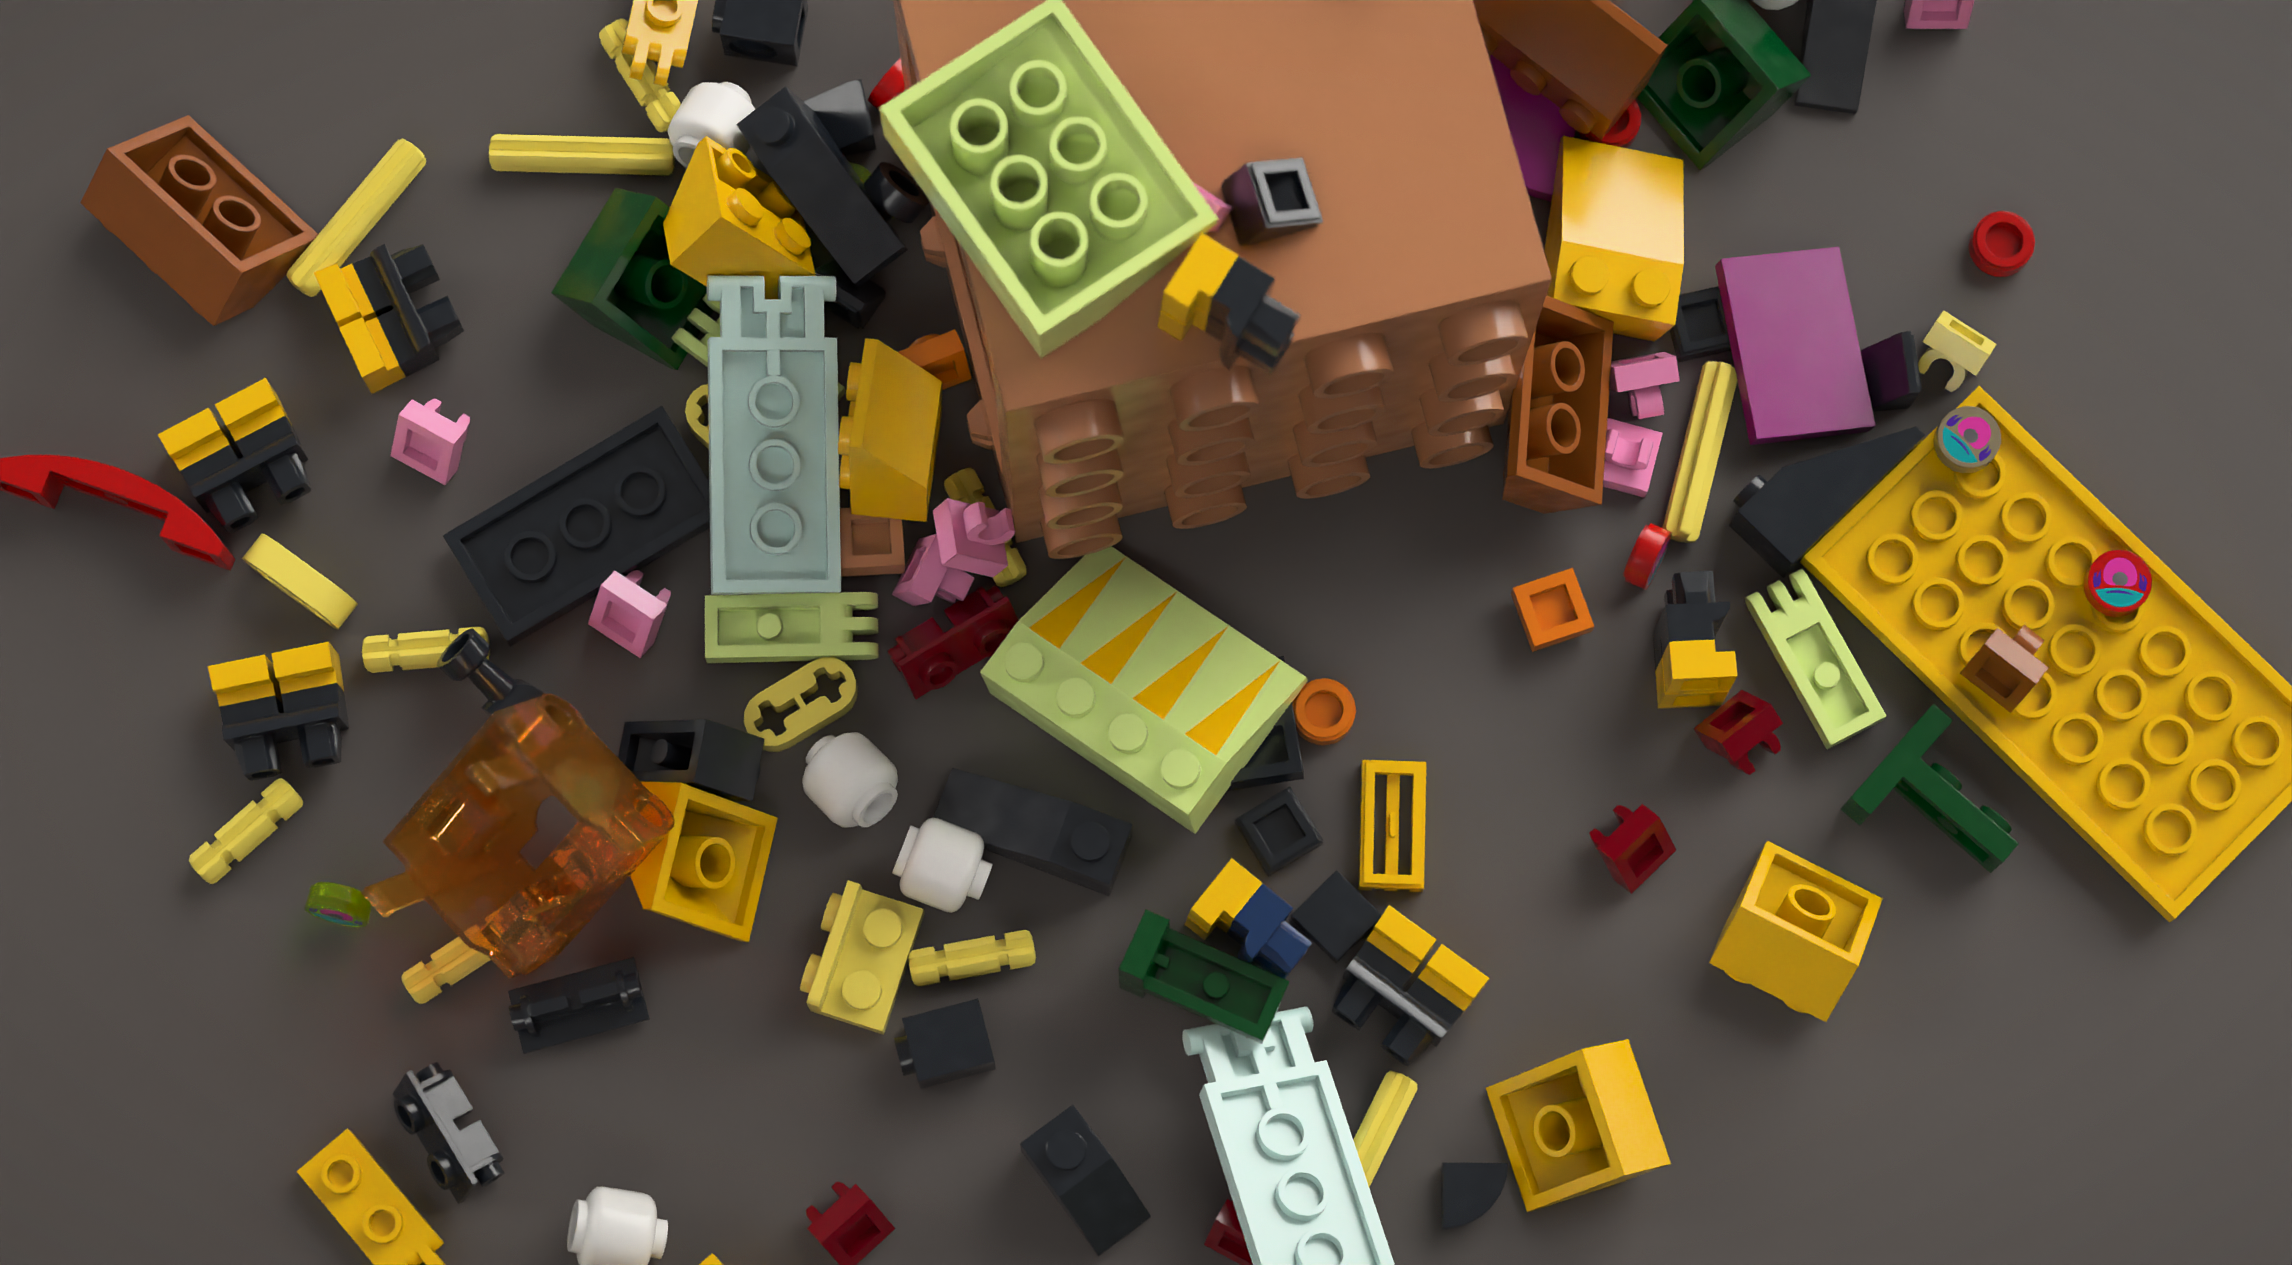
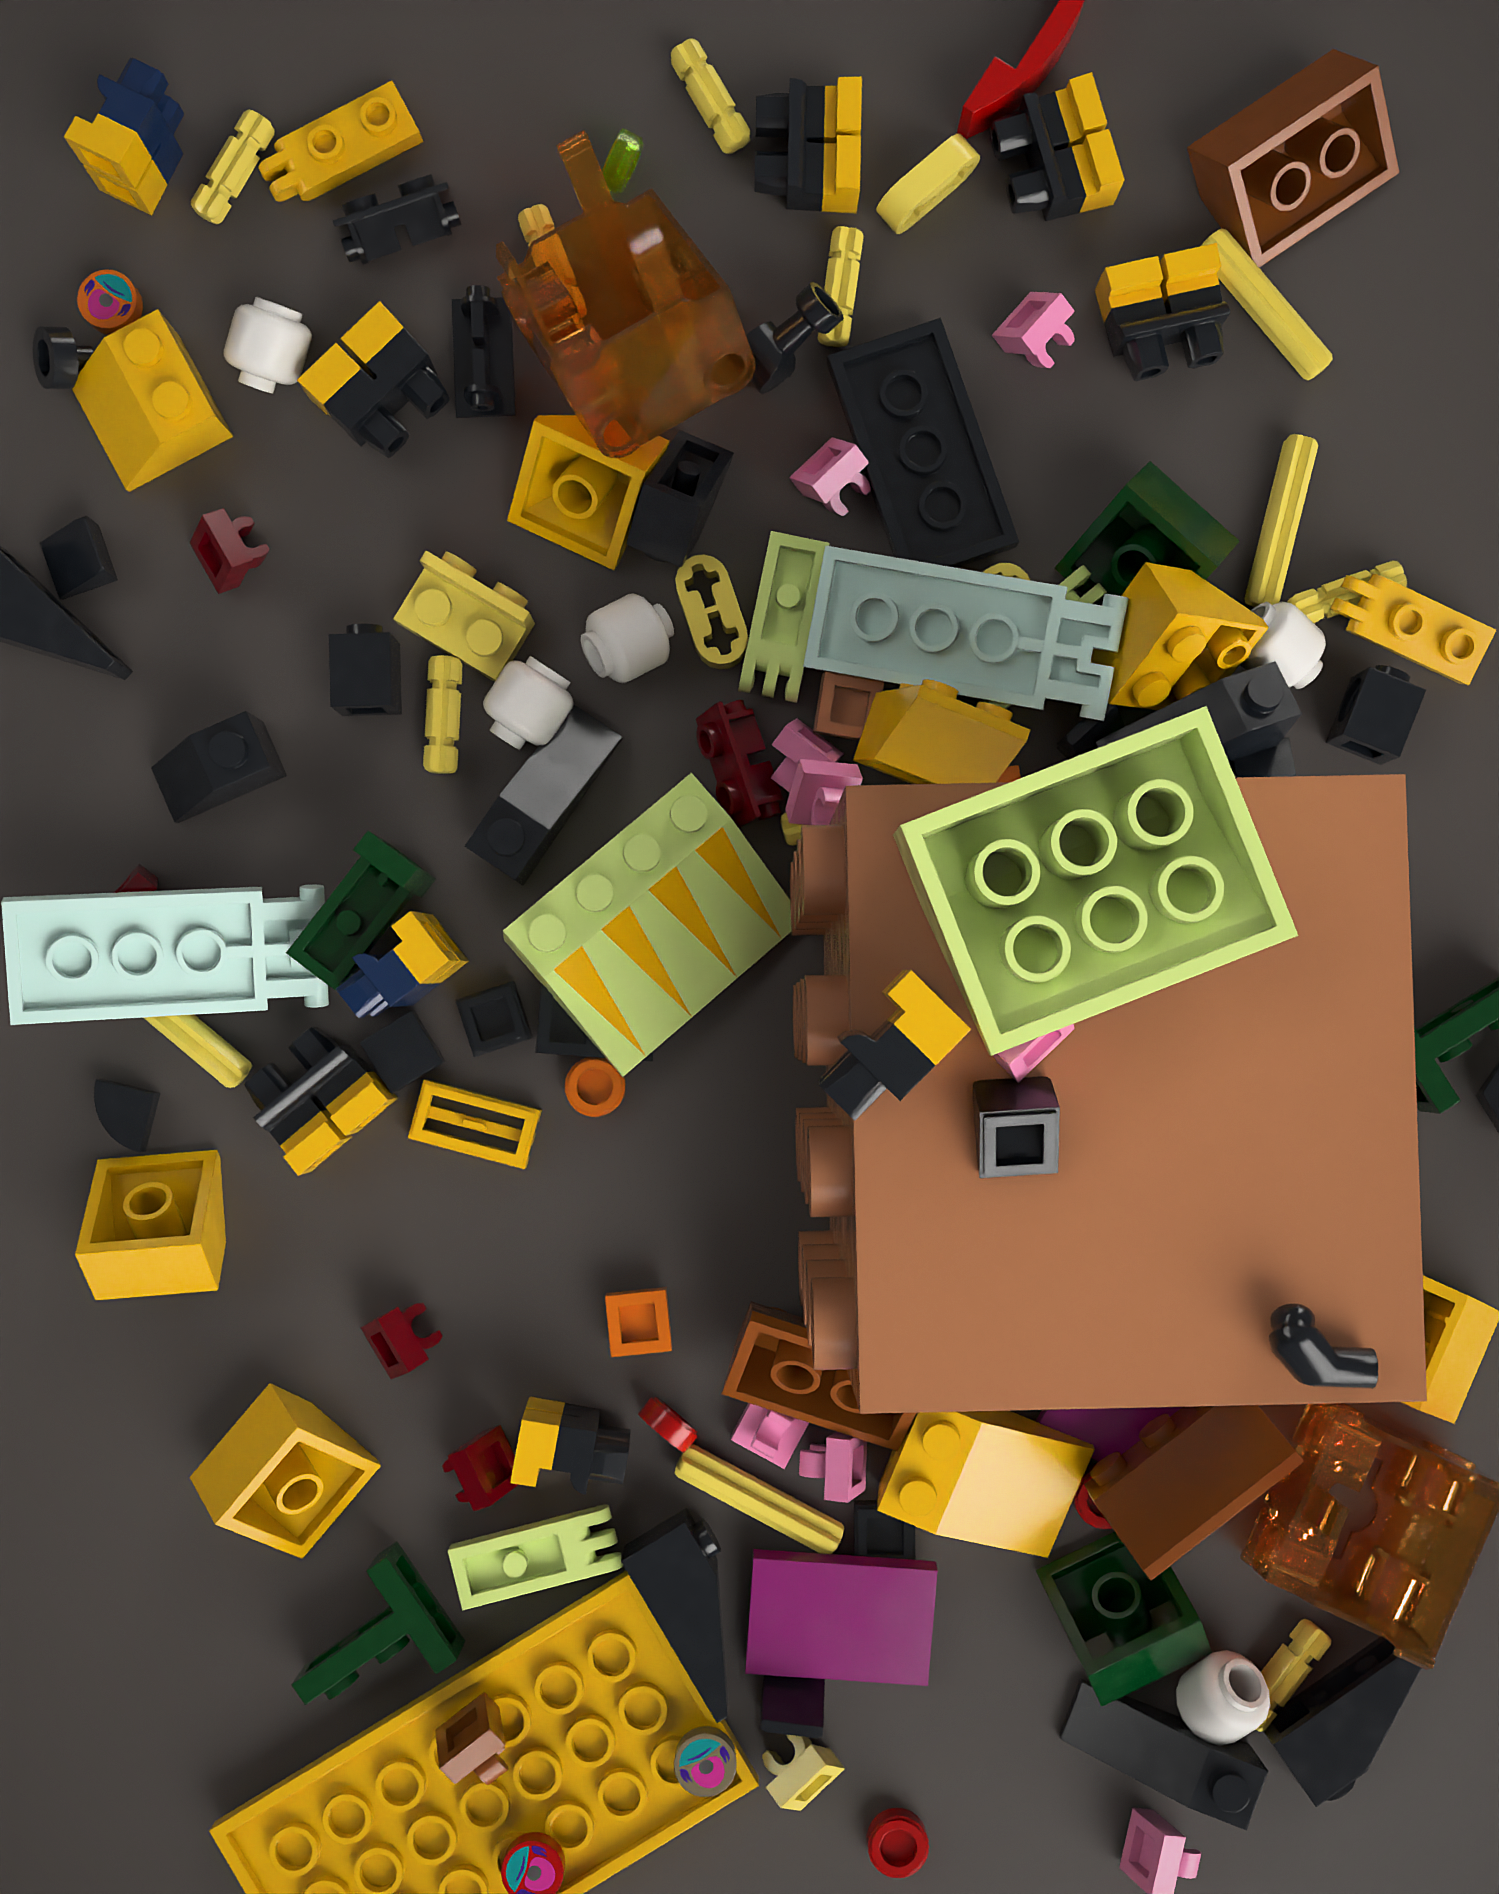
camera: 100 degrees right, 10 degrees up
(628, 1113) = (367, 405): none -> black hips

